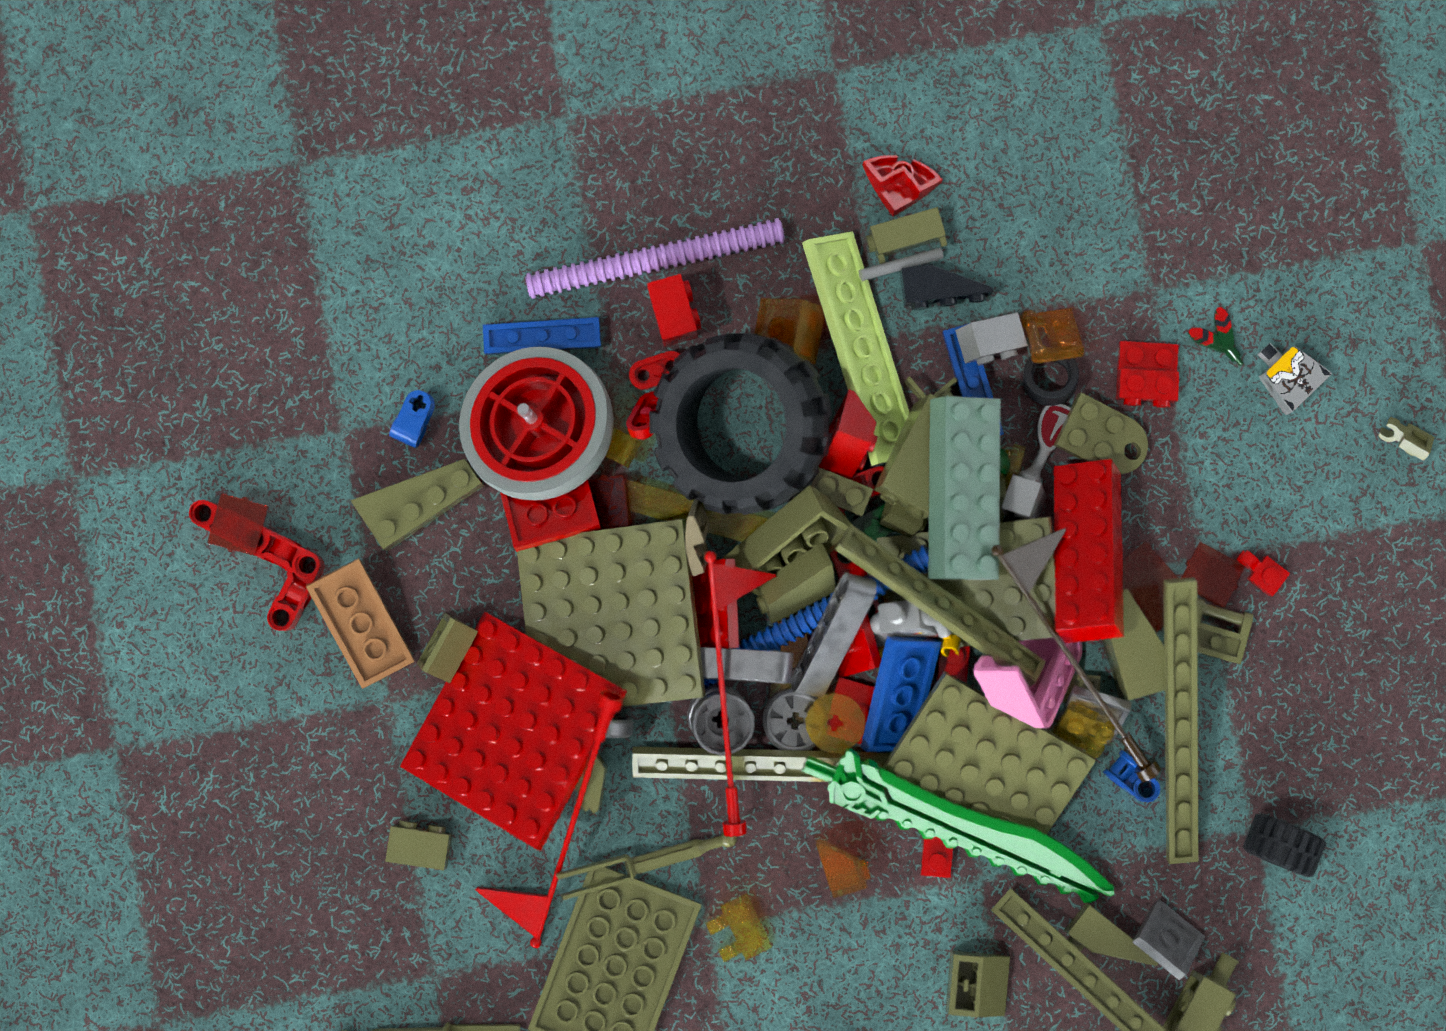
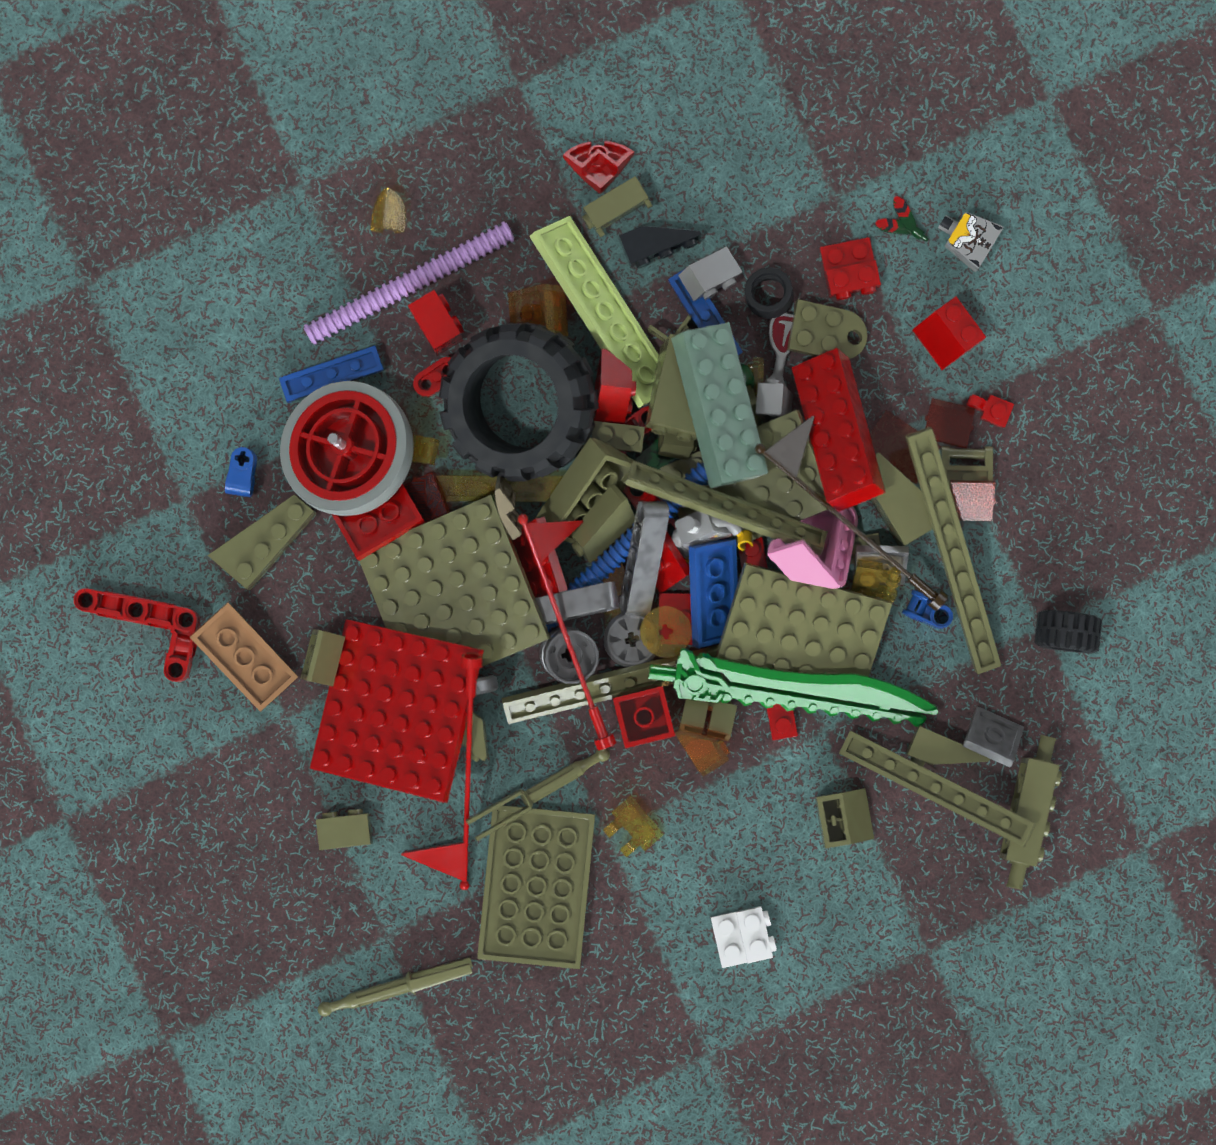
camera: 15 degrees left, 0 degrees up
(238, 524) = (118, 601): clear red piece -> none
(639, 417) = (432, 421): red plate -> none
(653, 174) = (388, 213): none -> clear yellow brick
(785, 811) = (643, 717): none -> red brick
(868, 839) = (720, 721): none -> olive piece
(896, 265) = (614, 234): light grey bar -> none
(1061, 333) = (768, 254): clear orange plate -> none
(1218, 667) = (973, 499): none -> clear red piece
(1239, 475) = (949, 333): none -> red slope
(1410, 438) = (1085, 264): olive plate -> none

